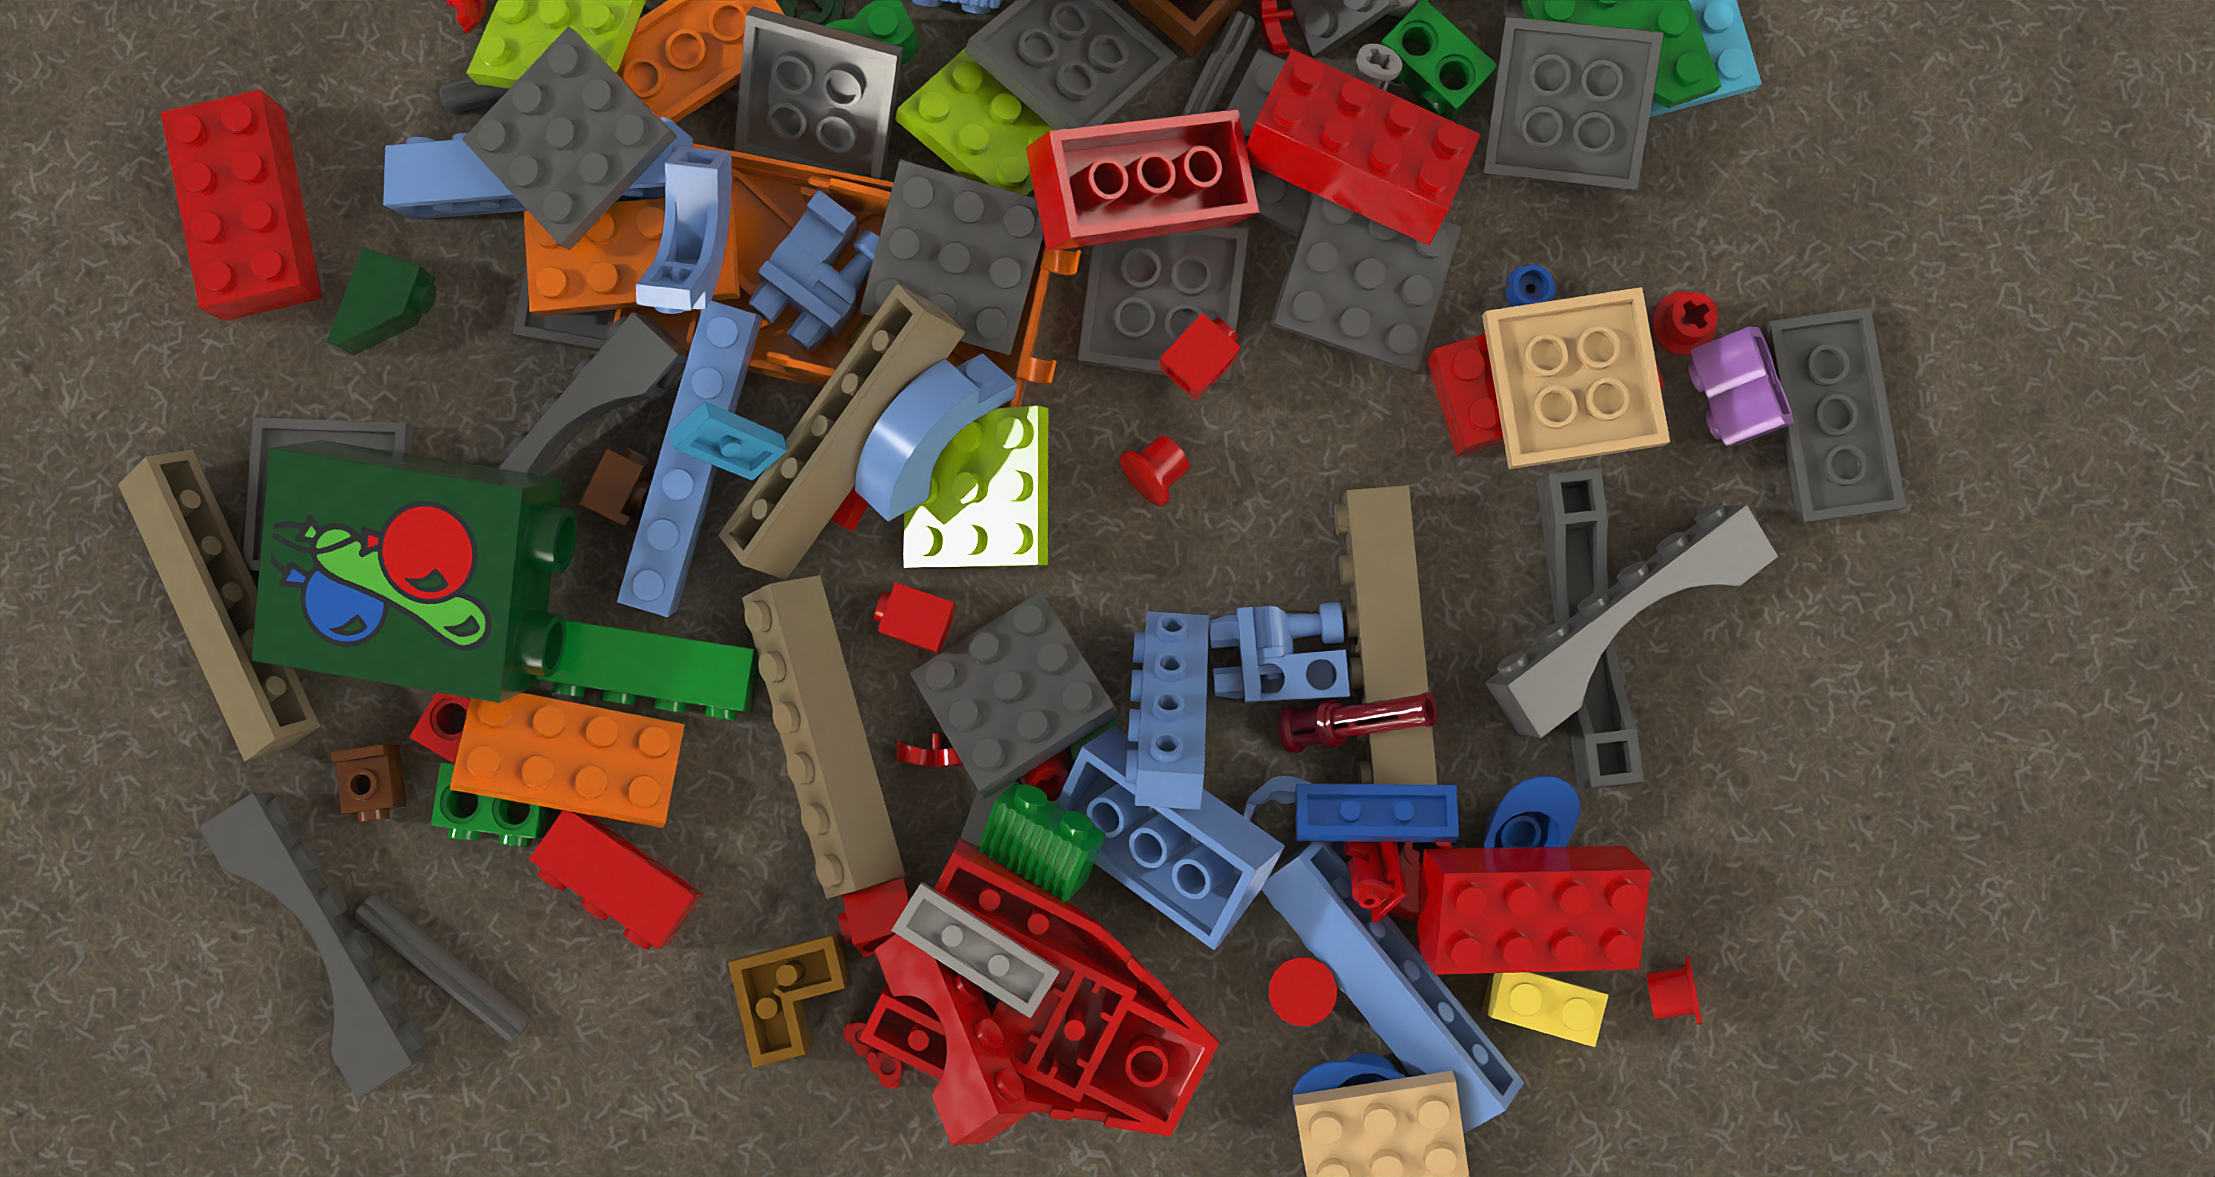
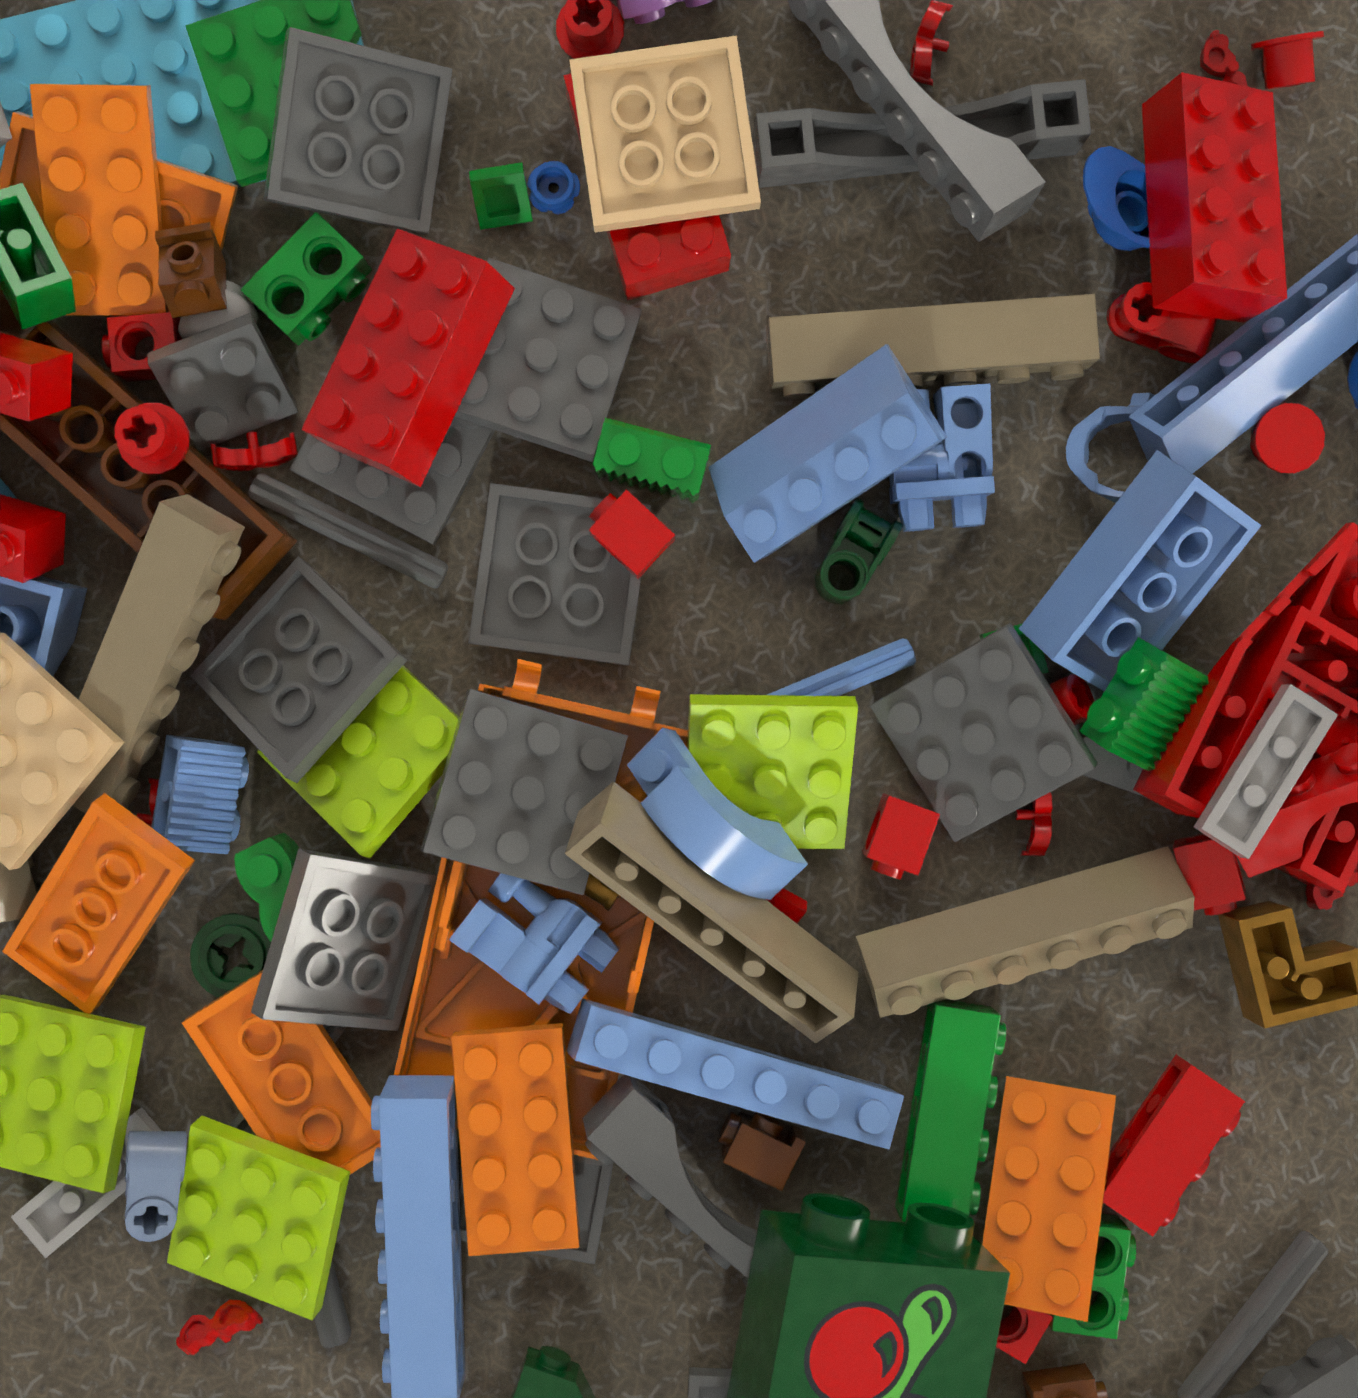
camera: 95 degrees left, 5 degrees up
(569, 138) = (394, 1209): dark grey plate -> none
(692, 234) = (507, 1074): medium blue arch -> none
(728, 441) = (728, 1034): dark azure plate -> none
(1071, 574) = (855, 672): none -> medium blue axle
(1141, 179) = (446, 592): red brick -> none
(1155, 469) = (744, 584): red piece -> none
(1171, 712) = (1013, 566): medium blue brick -> none
(1190, 575) = (861, 546): none -> dark green piece
(1271, 379) = (651, 459): none -> green brick
(1277, 537) = (823, 454): none -> medium blue slope
(1333, 723) = (1017, 399): dark red pin -> none
(1376, 813) = (1115, 356): blue plate -> none
(1376, 876) = (1175, 356): red hinge -> none
(1377, 65) = (317, 340): light grey bush -> none
(1520, 238) = (500, 195): none -> green plate
(1546, 1005) = (1309, 180): light yellow brick -> none
(1672, 930) = (1220, 61): none -> red piece
(1683, 640) = (924, 42): none -> red piece

